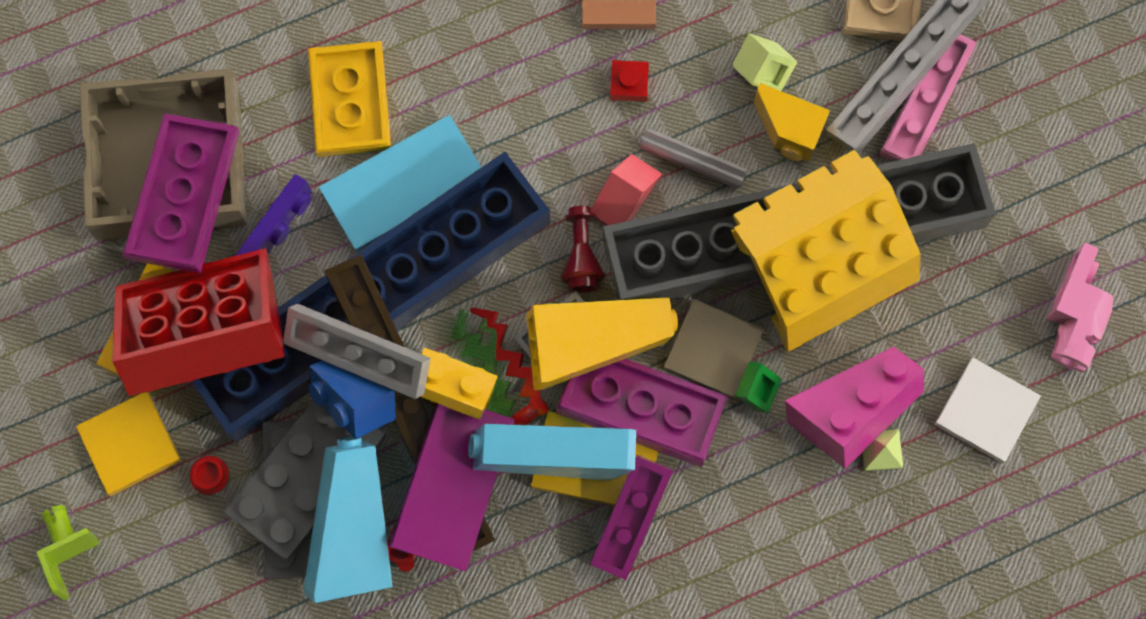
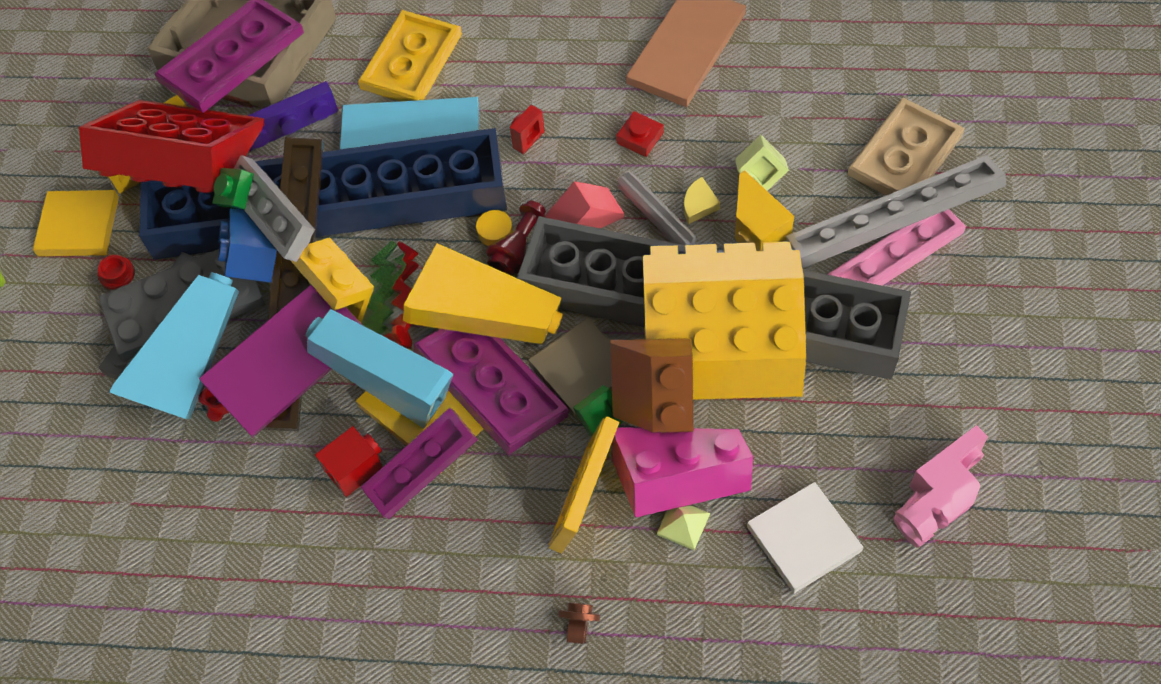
camera: 35 degrees right, 15 degrees down
(304, 346) = (232, 188): none -> green plate
(520, 128) = (527, 129): none -> red plate
(550, 248) = (493, 226): none -> yellow tile
(564, 544) = (350, 460): none -> red brick
(725, 127) = (699, 201): none -> light yellow tile
(790, 465) = (583, 485): none -> yellow tile
(807, 344) = (653, 383): none -> dark orange slope
(845, 580) = (578, 622): none -> copper plate

